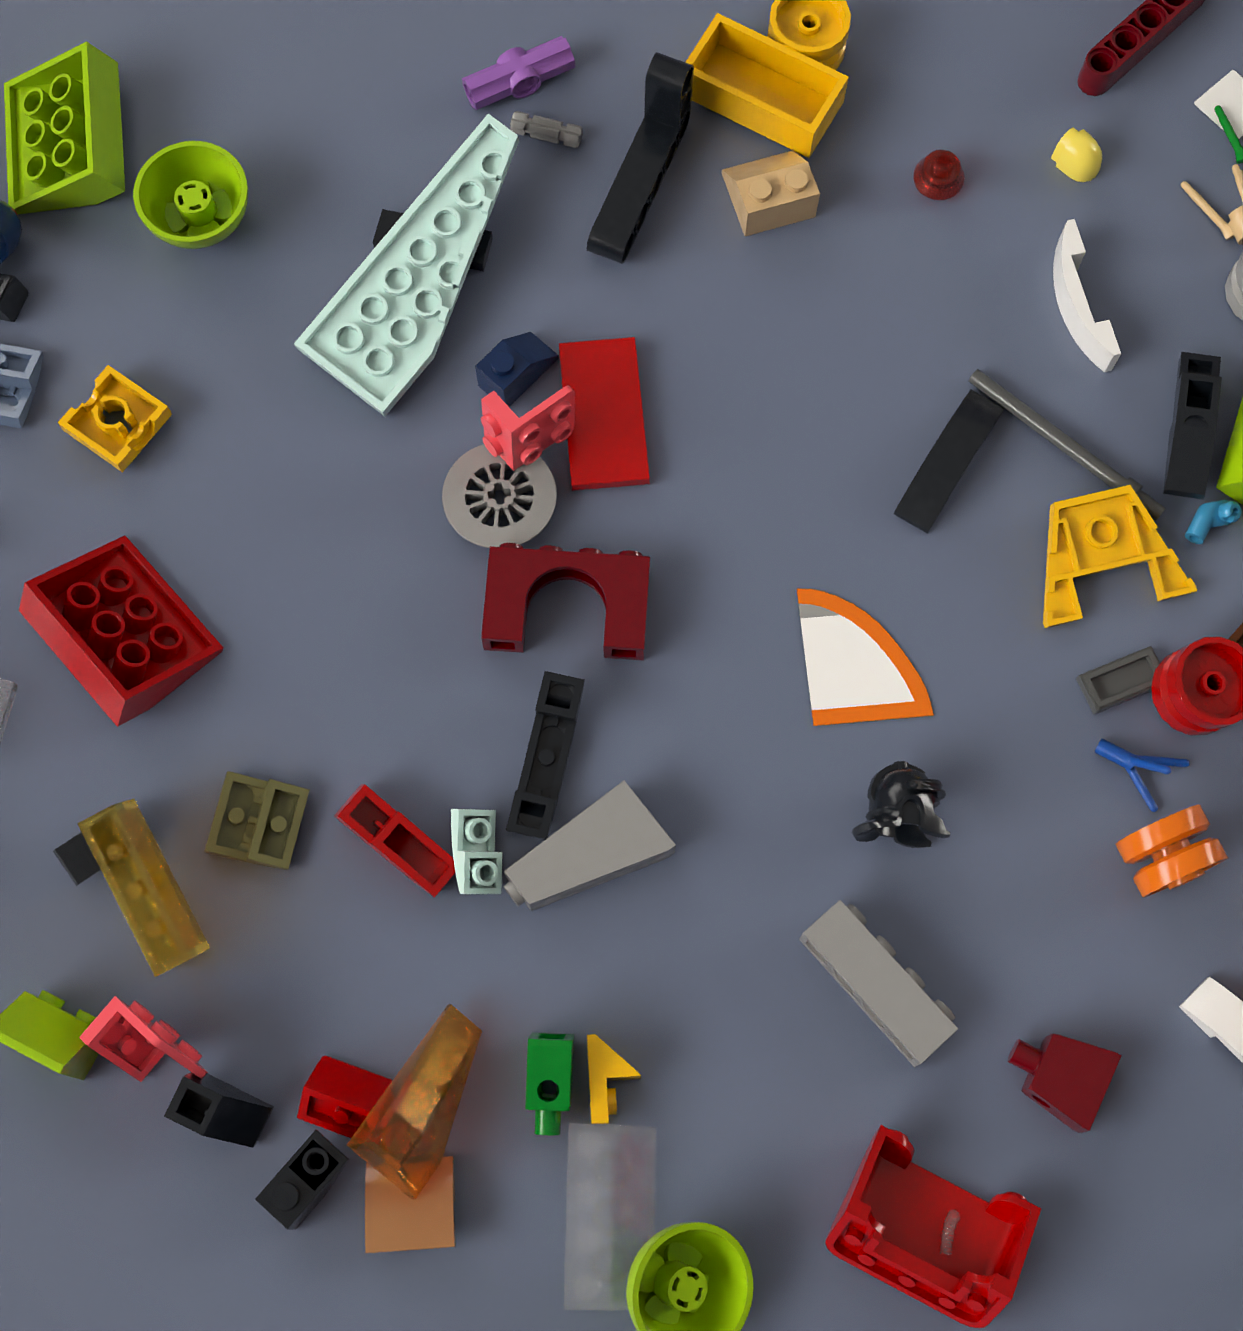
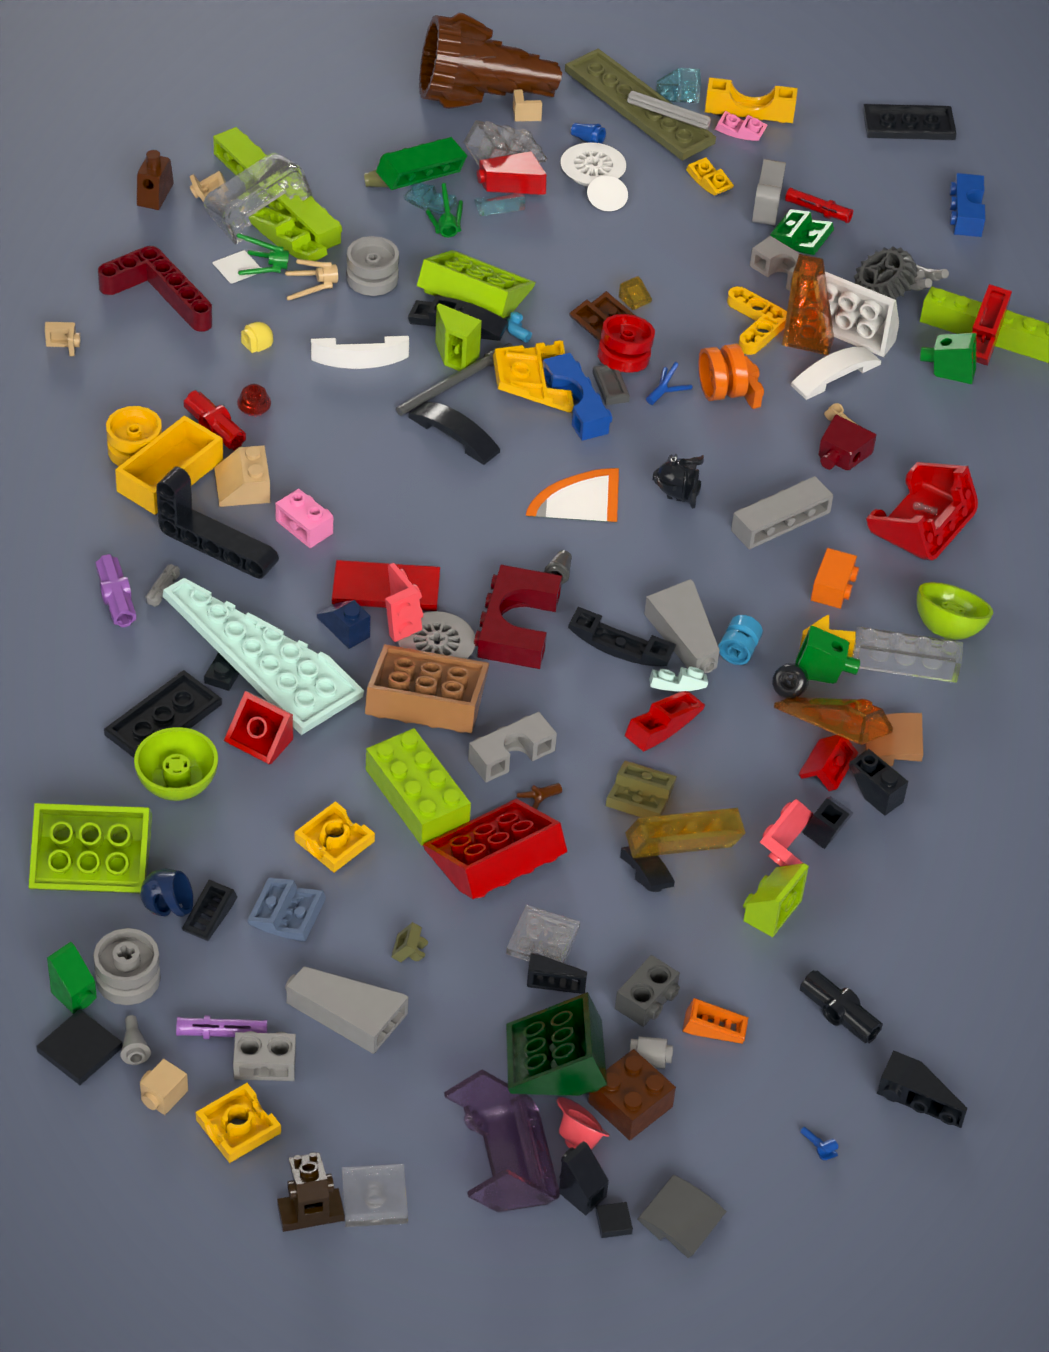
camera: 85 degrees left, 25 degrees down
(212, 508) = (417, 786): none -> lime piece
(232, 680) = (540, 794): none -> reddish brown bar
(288, 598) = (529, 735): none -> light grey arch
(292, 294) = (260, 728): none -> red slope
(311, 177) = (175, 704): none -> black tile
(397, 492) = (426, 688): none -> medium nougat slope
(494, 1024) = (781, 678): none -> black head
(586, 940) = (740, 639): none -> dark azure wheel
(682, 648) = (560, 565): none -> dark grey cone
(707, 280) = (304, 518): none -> bright pink brick
(744, 1083) = (834, 578): none -> orange brick
(881, 130) = (215, 419): none -> red piece
(1028, 651) = (589, 416): none -> blue arch
(1137, 424) = (457, 337): none -> lime slope
(1144, 1066) = (836, 409): none -> tan hand
(1189, 900) = (755, 389): none -> orange slope

